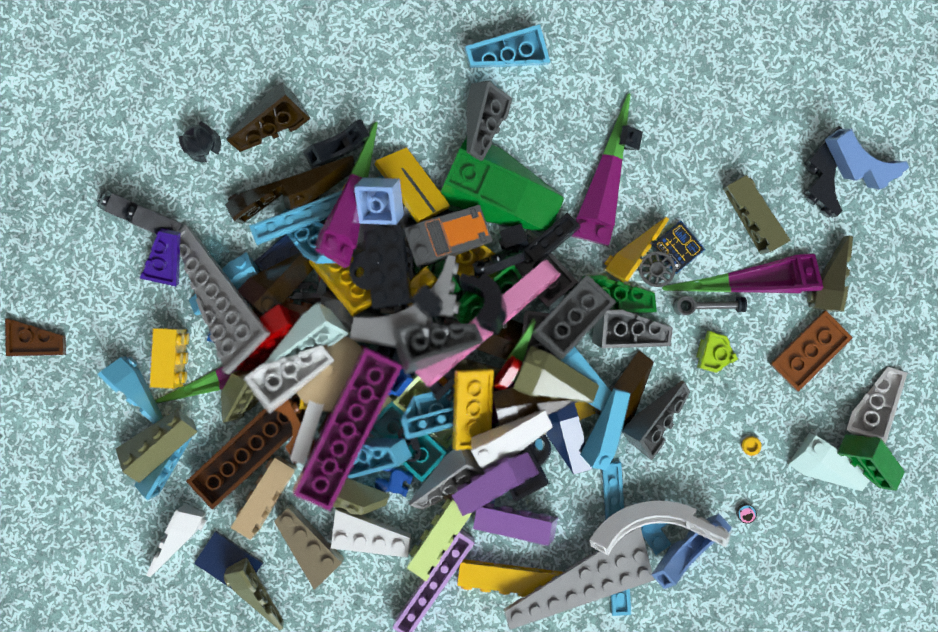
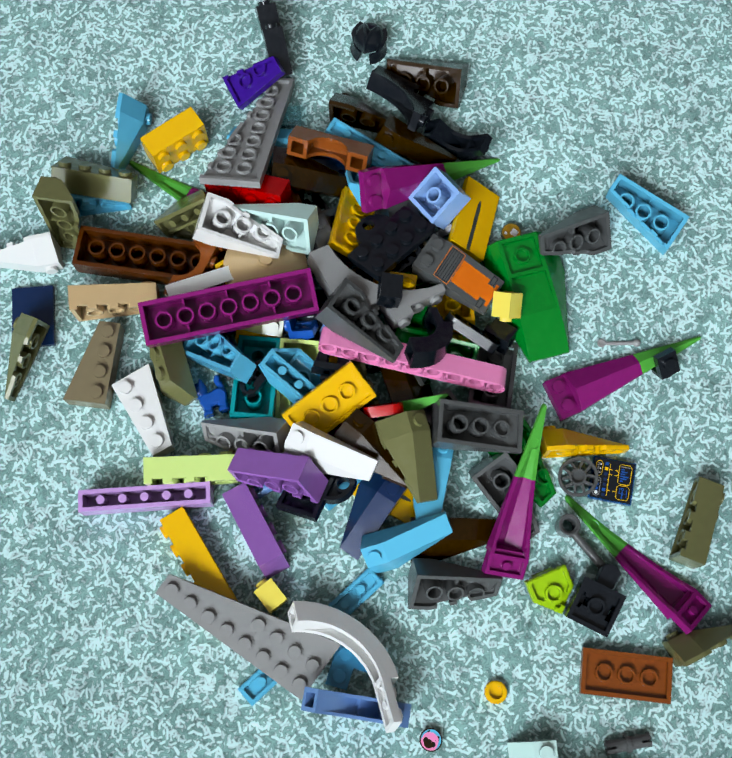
camera: 45 degrees right, 15 degrees down
(30, 340) = (106, 36): reddish brown wing -> none
(162, 493) = (58, 210): none -> olive wedge
(256, 263) = (309, 143): none -> dark orange arch
(269, 154) = (402, 95): none -> black arch
(441, 163) = (510, 230): none -> tile
(498, 218) = (507, 305): none -> light yellow brick
(552, 238) = (528, 365): black tile -> none
(568, 547) = (270, 595): none -> light yellow brick
(576, 167) = (601, 343): none -> light grey hinge
(663, 354) = (510, 538): none -> magenta plate
(750, 331) = (595, 599): none -> black brick
(852, 386) = (628, 743): none -> dark grey pin

